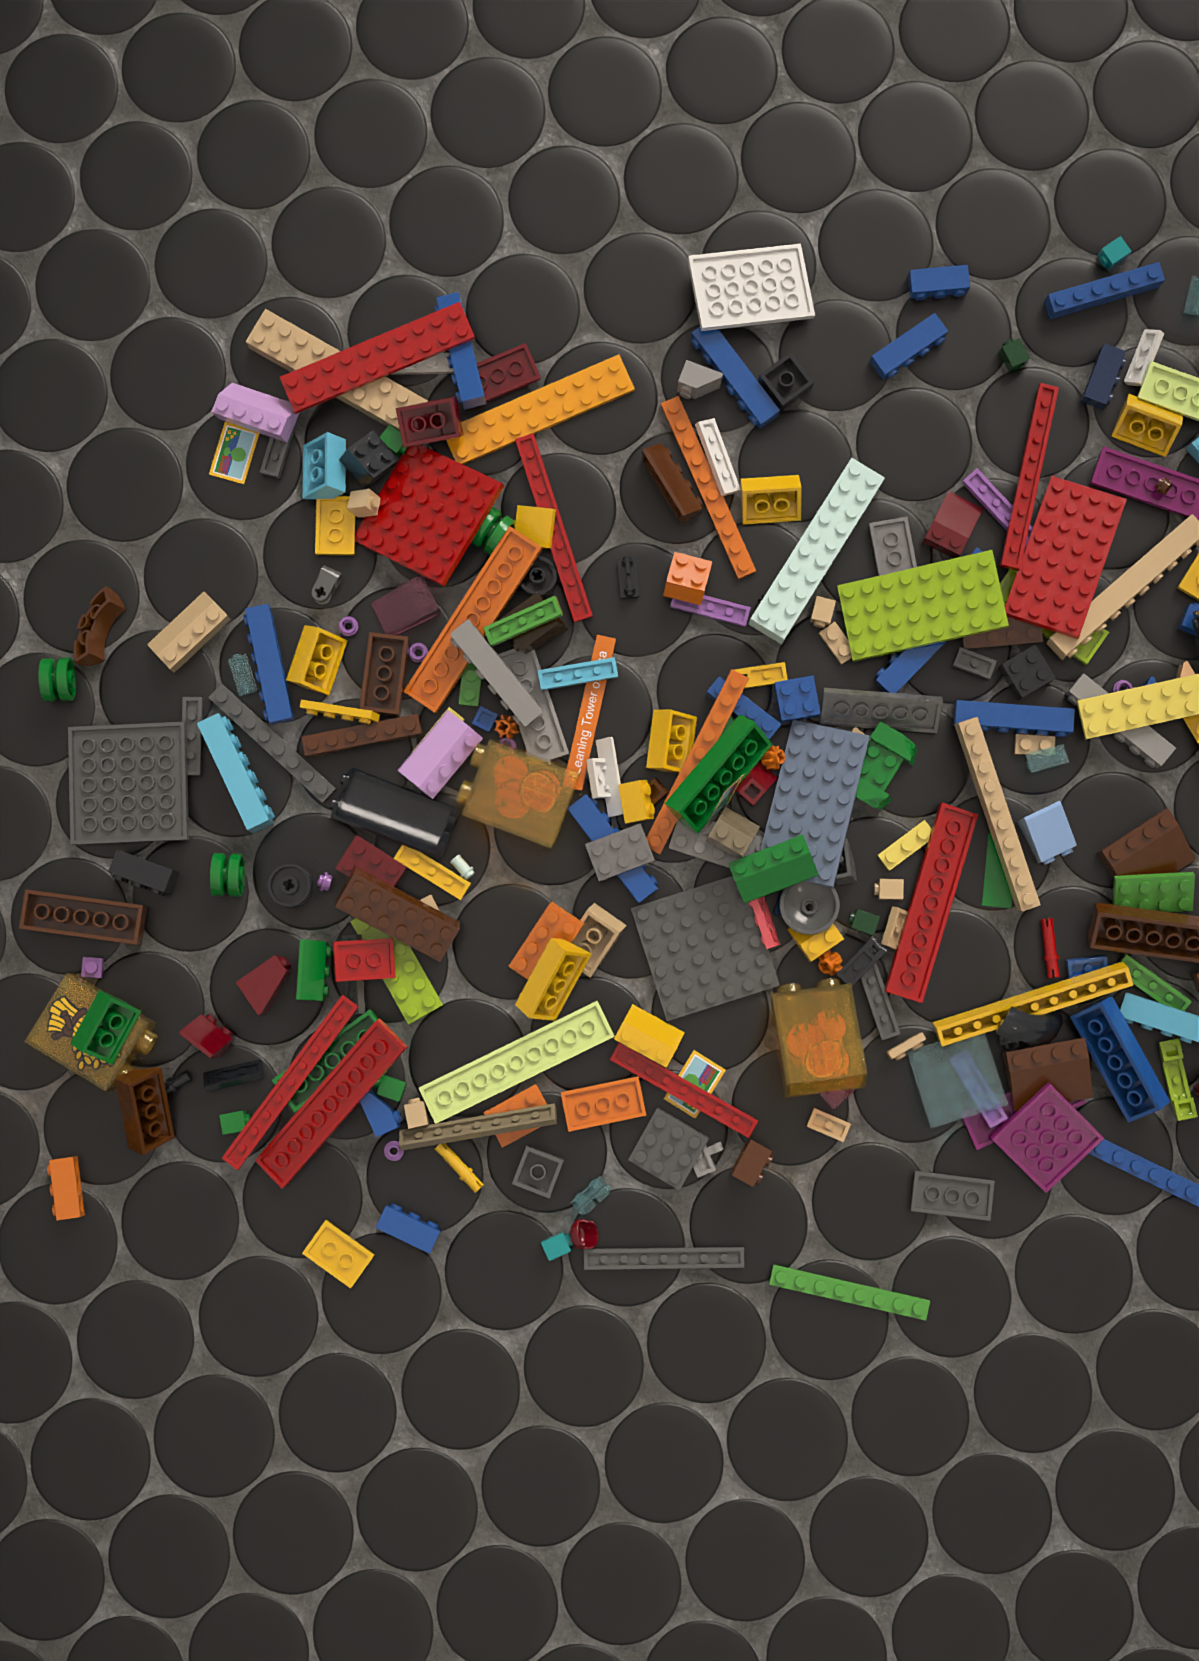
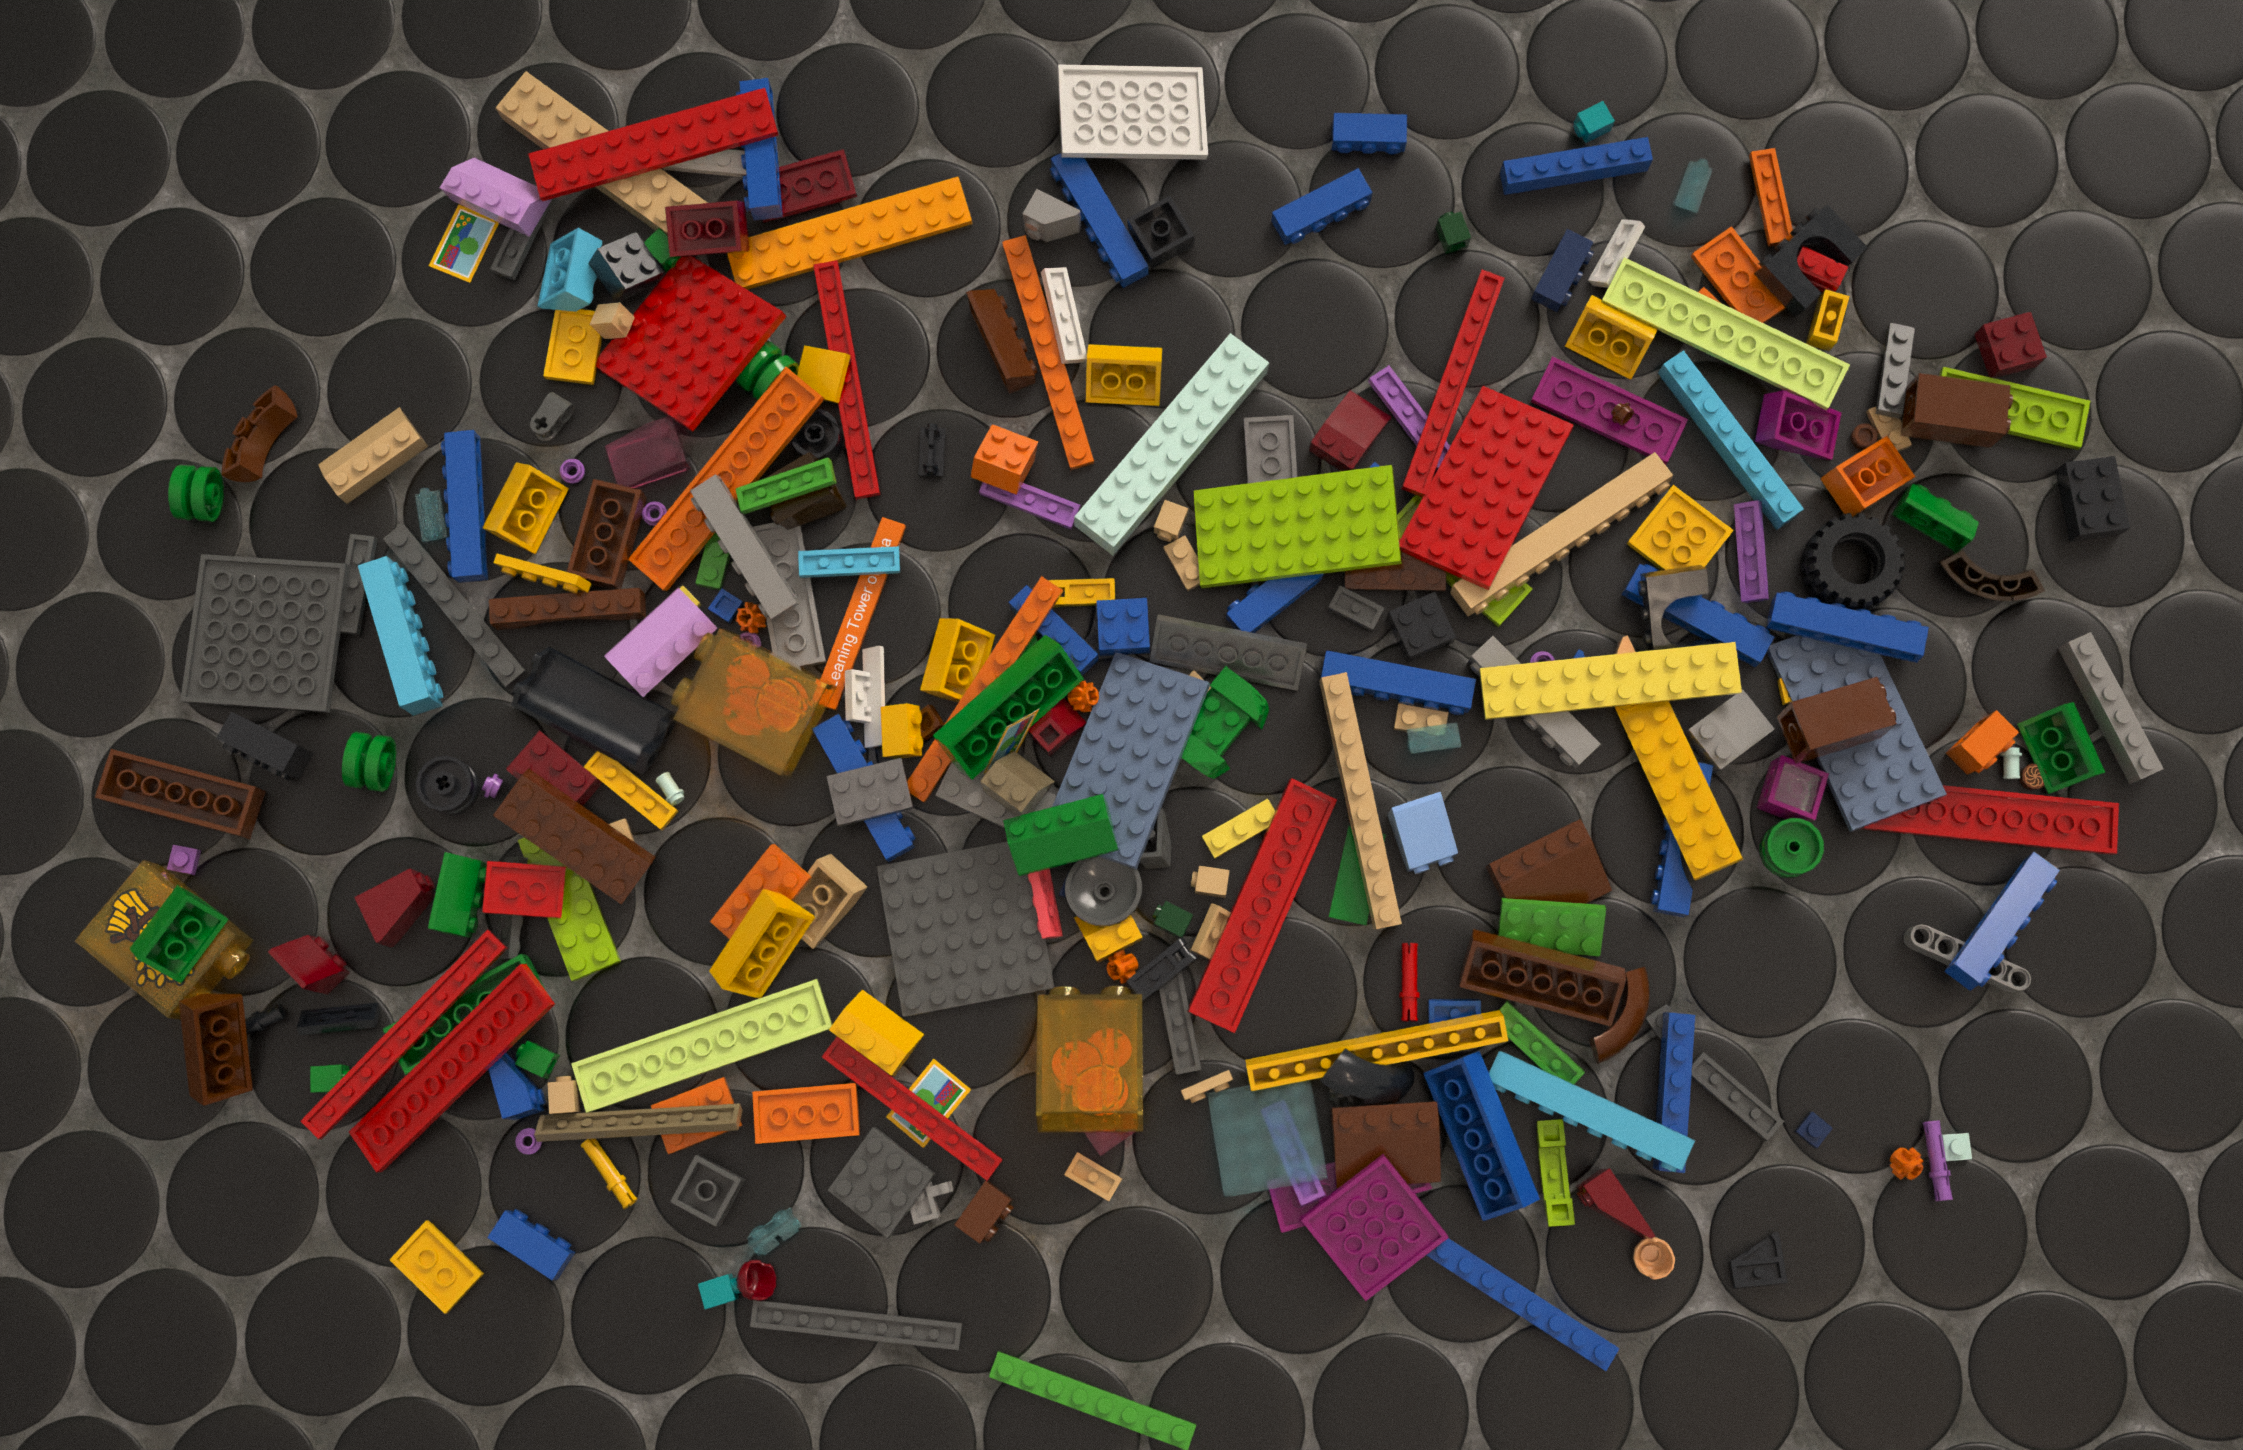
camera: 10 degrees right, 5 degrees down
(66, 1188) = (102, 1137): orange brick -> none
(952, 1195) = (1242, 1289): dark grey plate -> none

